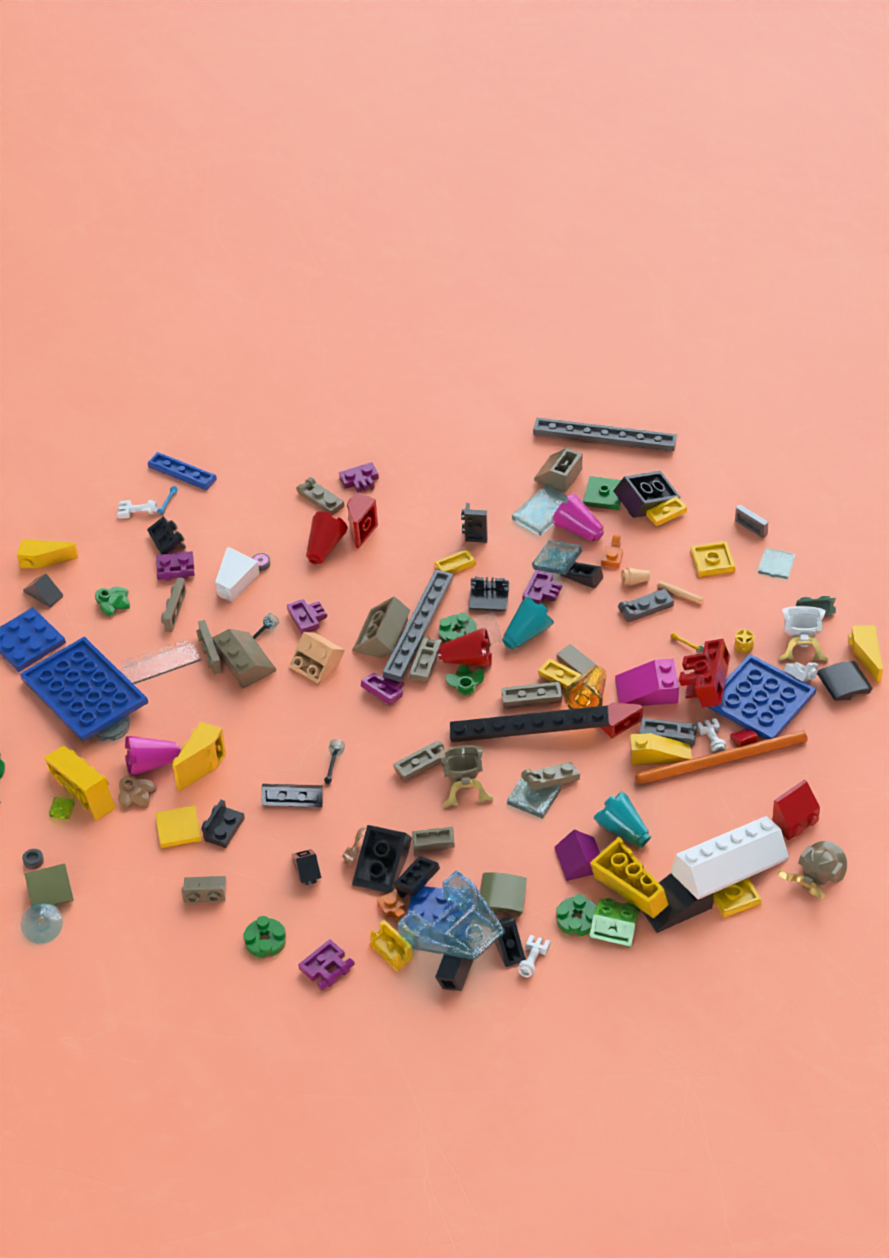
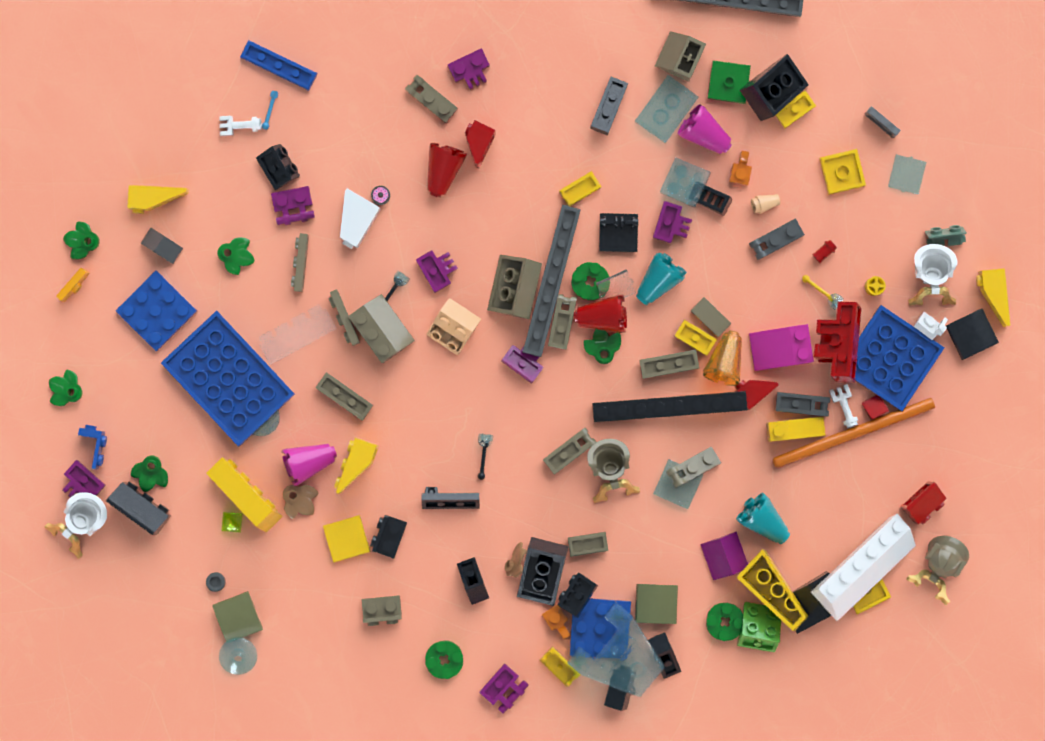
camera: 10 degrees left, 40 degrees up
(197, 707) = (344, 396): none -> dark tan plate
(475, 524) = (599, 147): black bracket -> none
(490, 499) = (609, 105): none -> hinge
(527, 966) = (690, 658): white hinge -> none
(680, 592) = (810, 220): light nougat piece -> none
(697, 611) = (823, 252): none -> red pin

